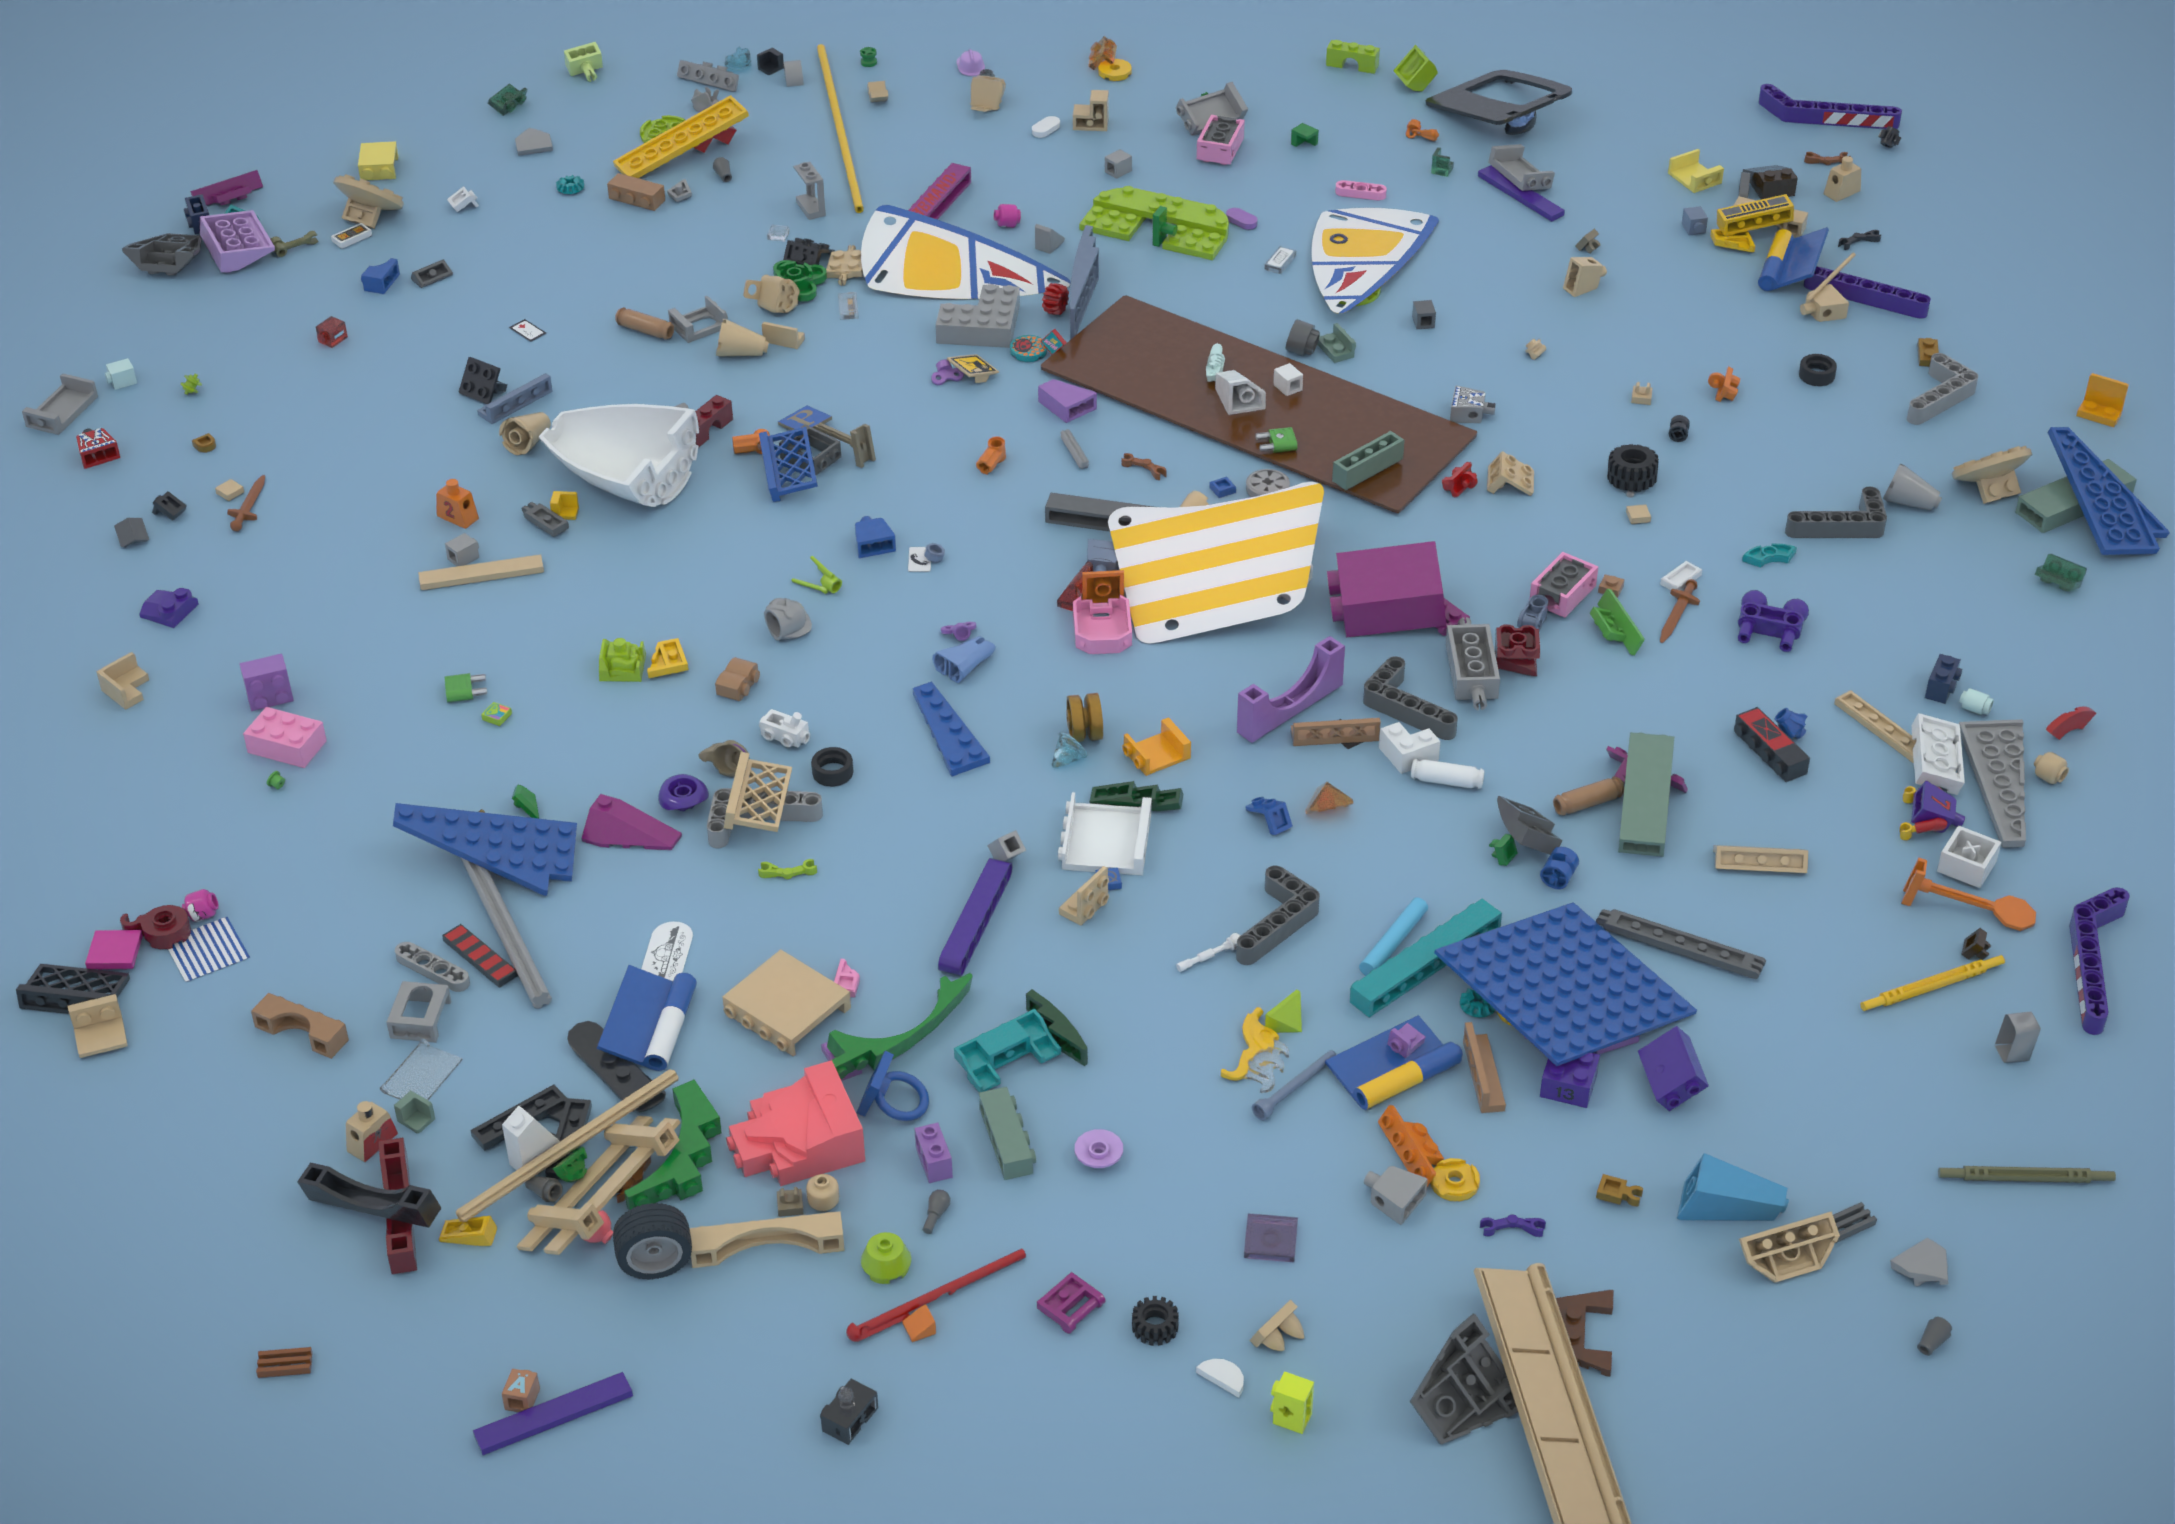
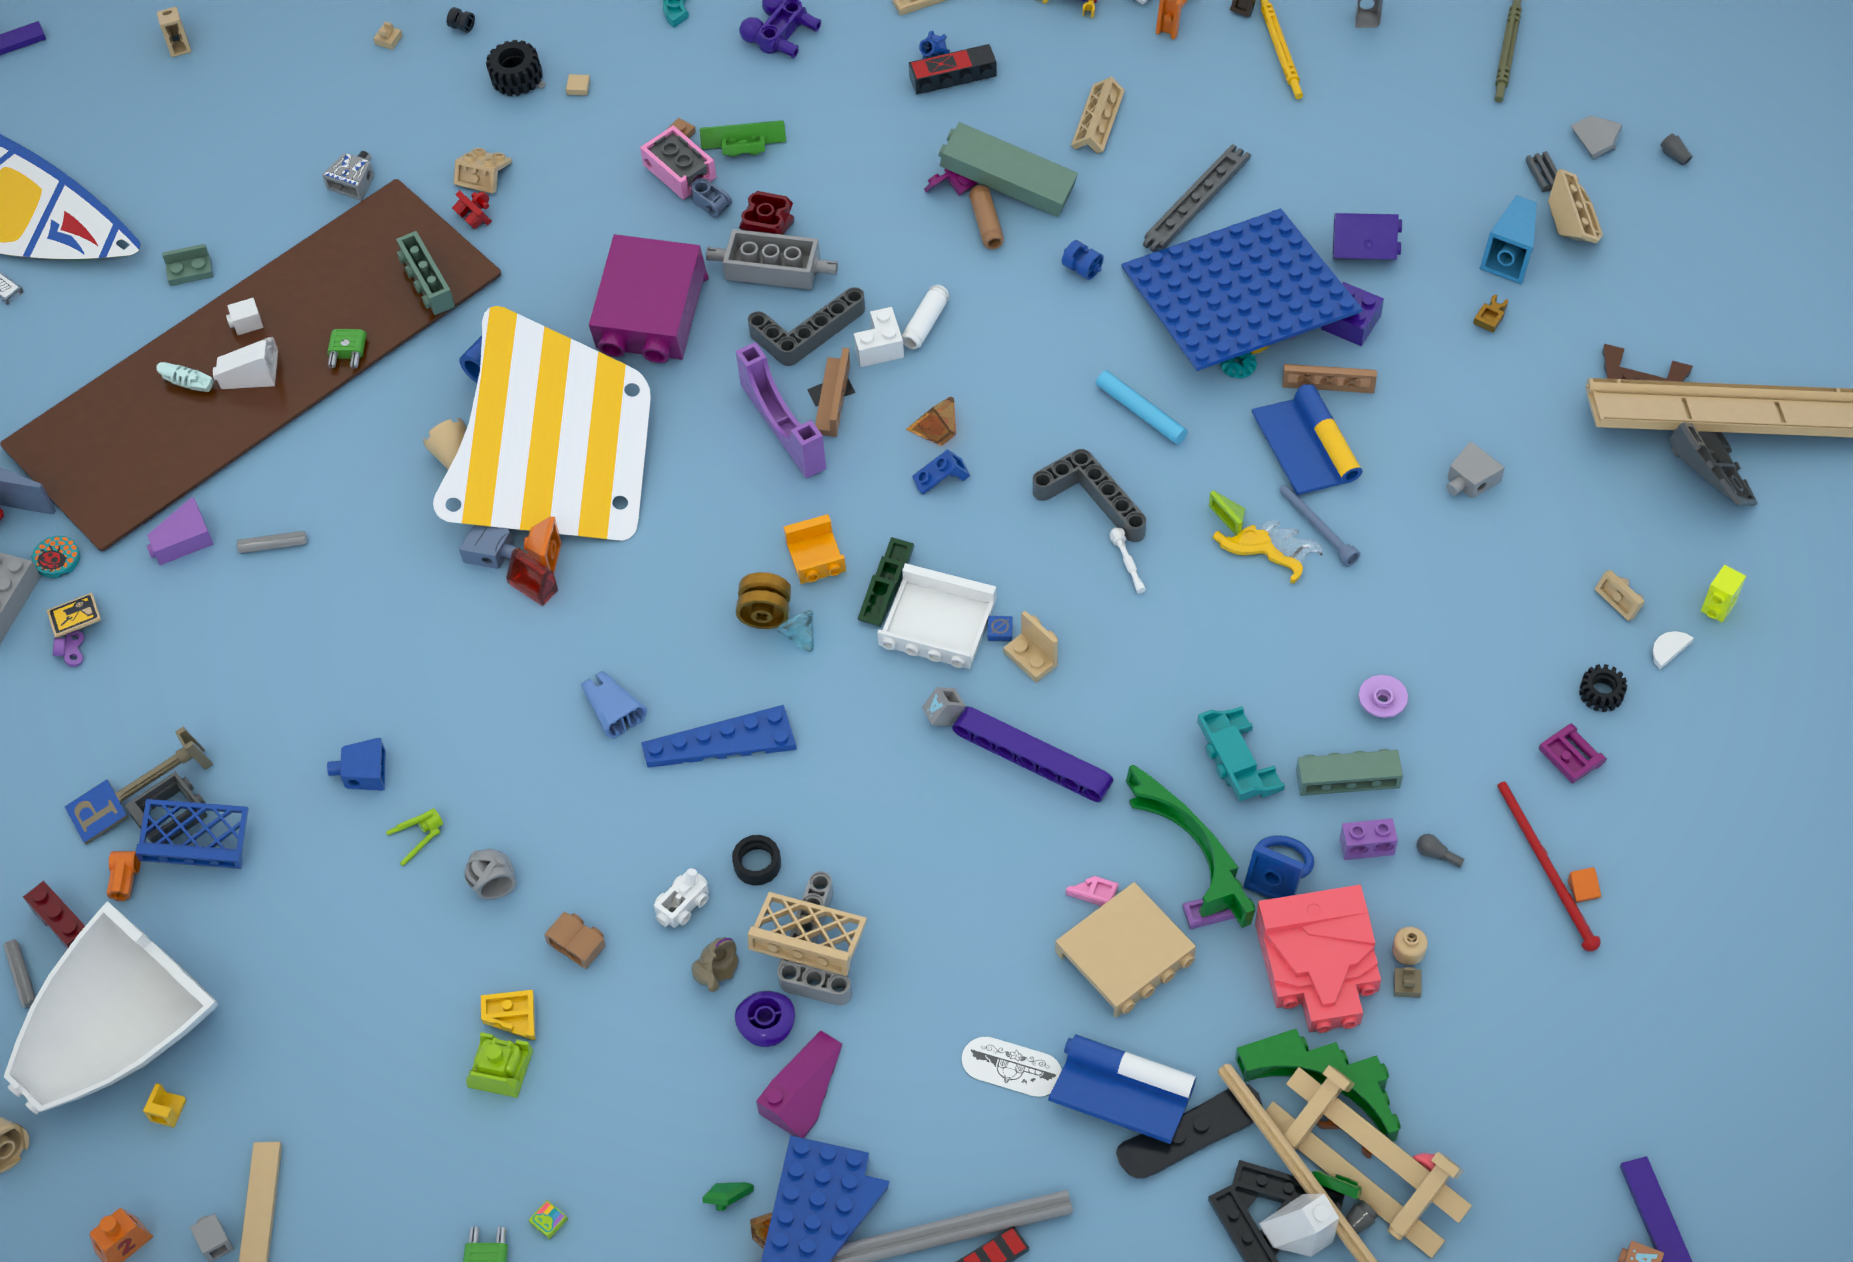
camera: 75 degrees left, 15 degrees up
(545, 518) = (179, 1132): dark grey hinge -> none
(652, 1241) = (1476, 1106): black wheel -> none
(770, 870) = (915, 928): lime piece -> none
(816, 1232) = (1463, 1057): tan arch -> none
(848, 1411) = (1692, 958): black piece -> none
(885, 1258) = (1500, 902): lime cone -> none
(917, 560) = (410, 727): white sticker -> none
(934, 552) = (412, 707): sand blue tile -> none
(960, 630) = (558, 702): medium lavender piece -> none
(992, 455) = (257, 622): orange piece -> none
(1053, 341) = (68, 525): tile -> none
(1059, 1027) = (1220, 699): dark green slope -> none
(1084, 511) = (405, 536): dark grey brick -> none
(1103, 633) = (606, 568): bright pink piece -> none
(1155, 470) = (326, 478): dark orange piece -> none
(1222, 487) = (396, 416): blue tile -> none
(1265, 482) = (404, 367): light grey wheel -> none
(1271, 1237) = (1508, 580): clear purple tile -> none
(1302, 338) = (170, 291): dark grey piece -> none
(1405, 1040) = (1286, 424): medium lavender bracket -> none
(1411, 1143) = (1416, 449): orange bracket -> none
(1418, 961) = (1177, 388): teal brick -> none
(1424, 314) = (172, 178): dark grey brick -> none
(1453, 1190) = (1456, 439): yellow tile -> none
(1504, 849) = (1043, 297): green tile -> none
(1512, 1221) = (1518, 387): dark purple piece -> none
(1528, 826) = (1024, 267): dark grey slope -> none
(1535, 348) = (272, 102): tan plate -> none
(1589, 242) = (107, 14): dark tan tile -> none
(1677, 578) = (685, 76): white tile -> none
(1684, 597) = (720, 80): dark orange sword -> none

